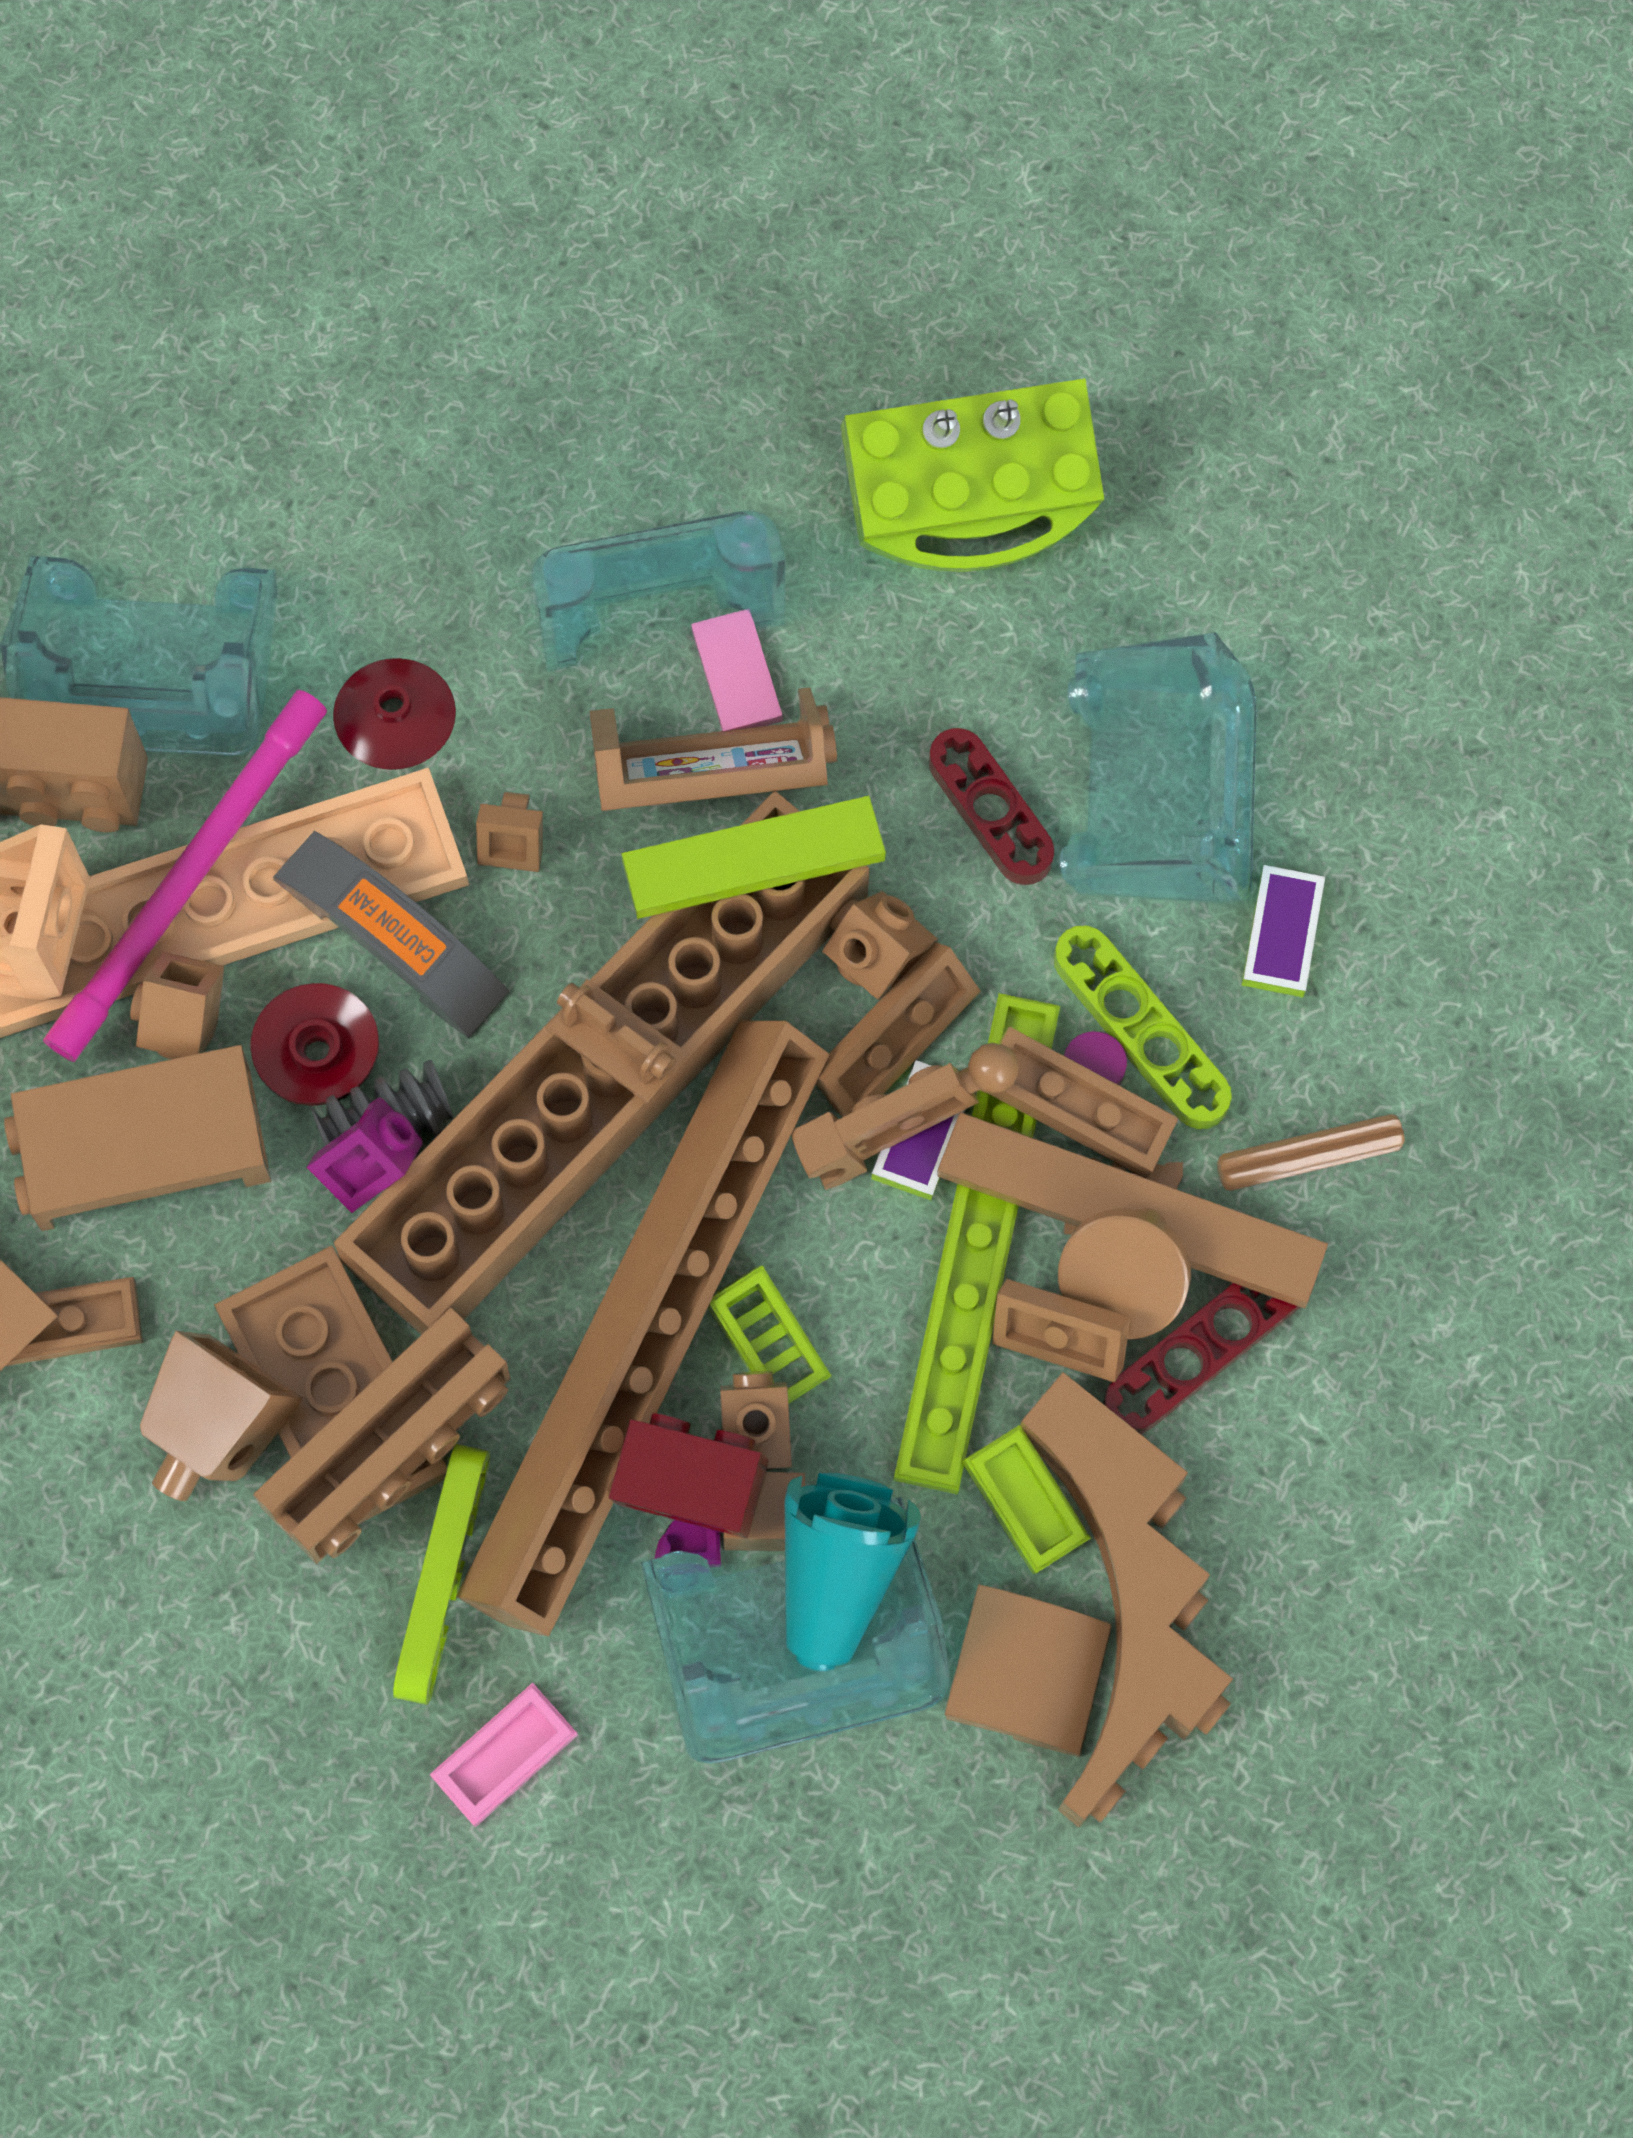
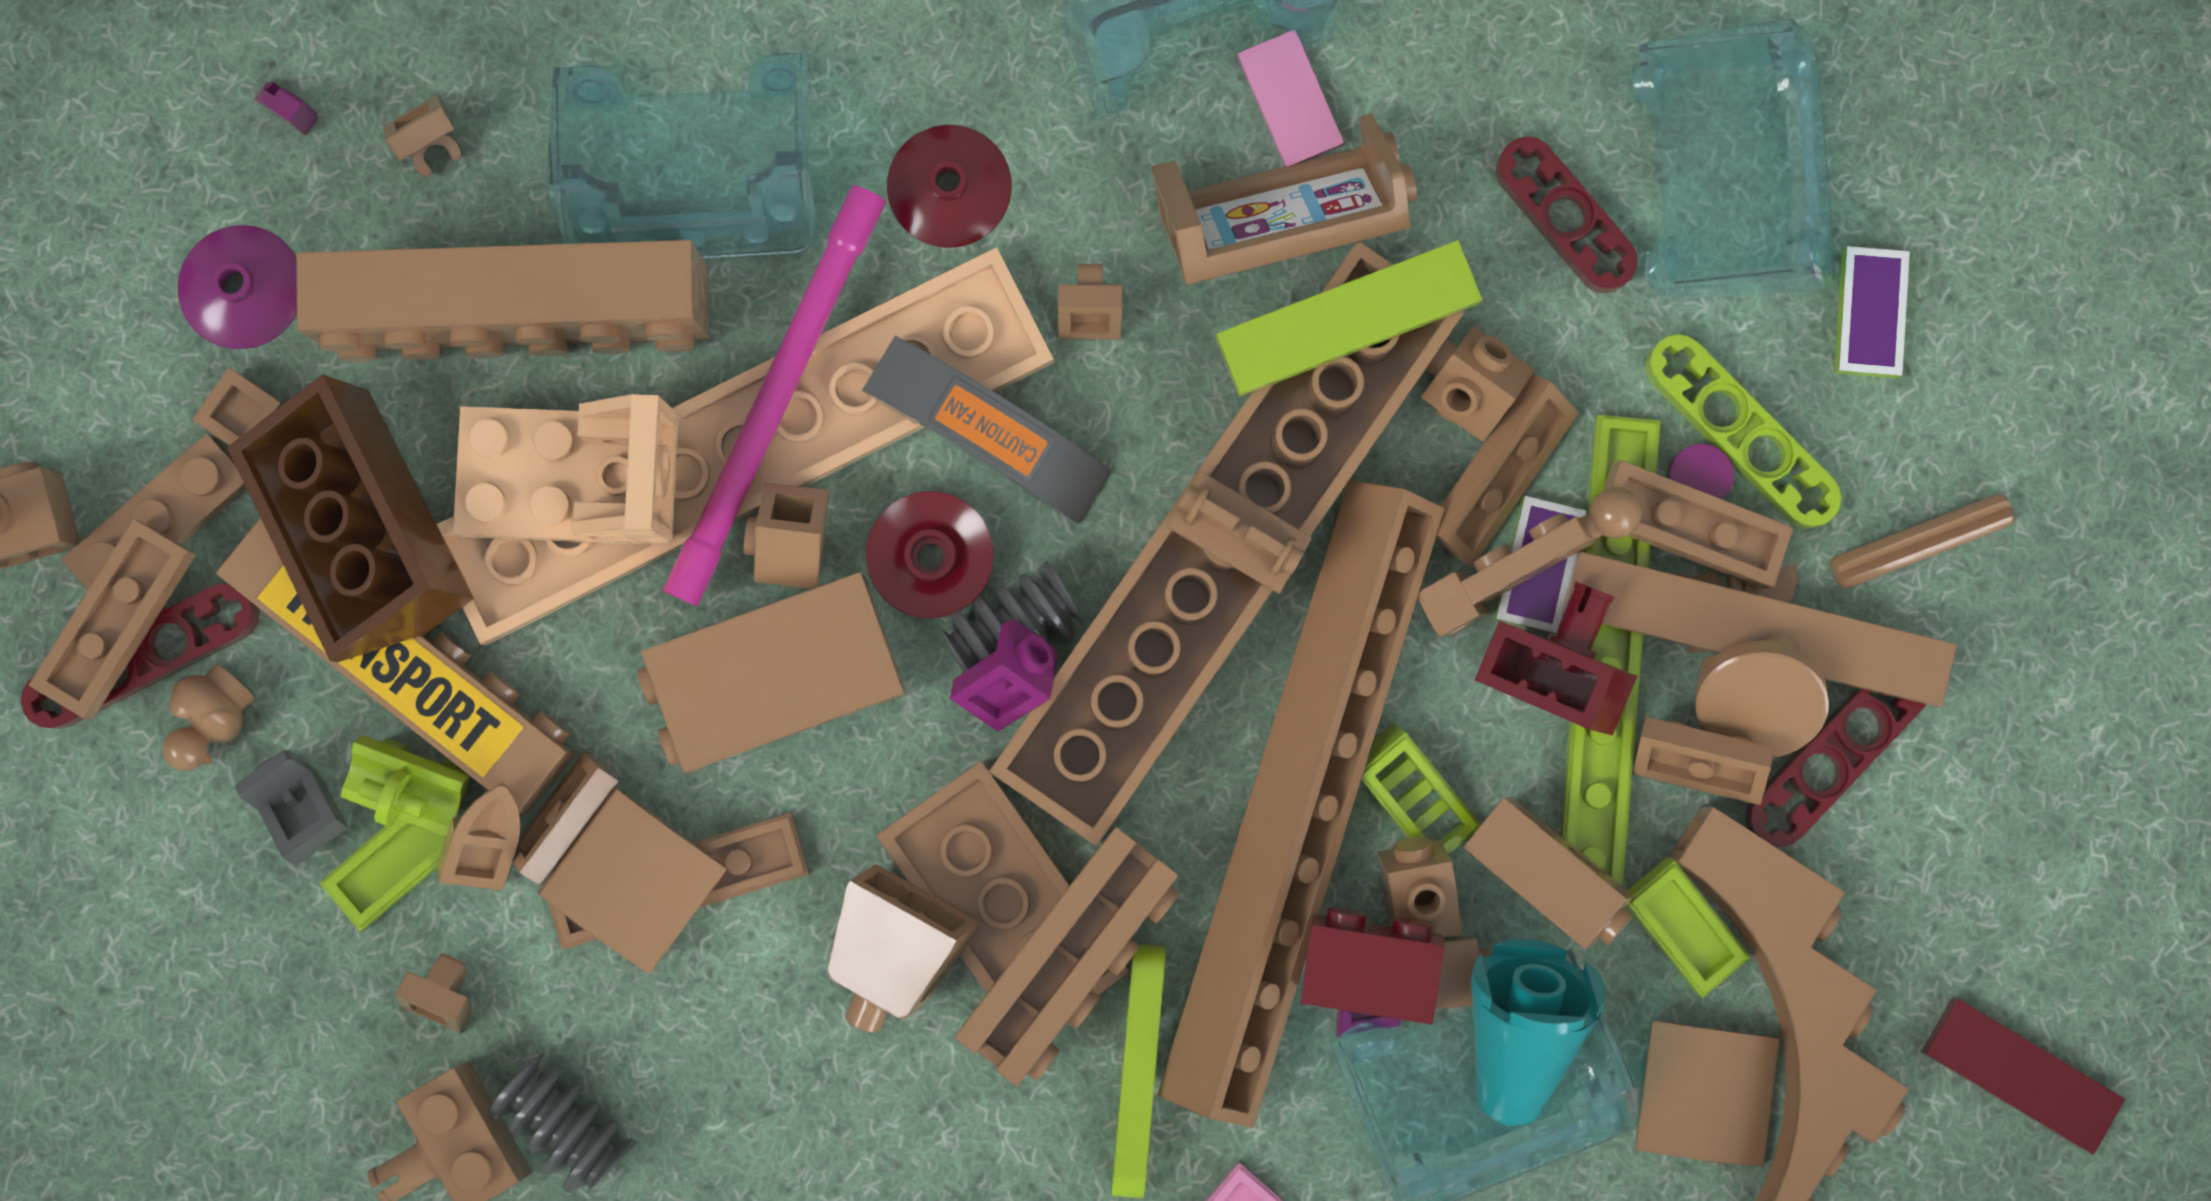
camera: 10 degrees left, 15 degrees up
(889, 1419) = (1551, 874): none -> medium nougat brick
(925, 1220) = (1561, 669): none -> dark red brick
(1363, 1696) = (2023, 1075): none -> dark red tile

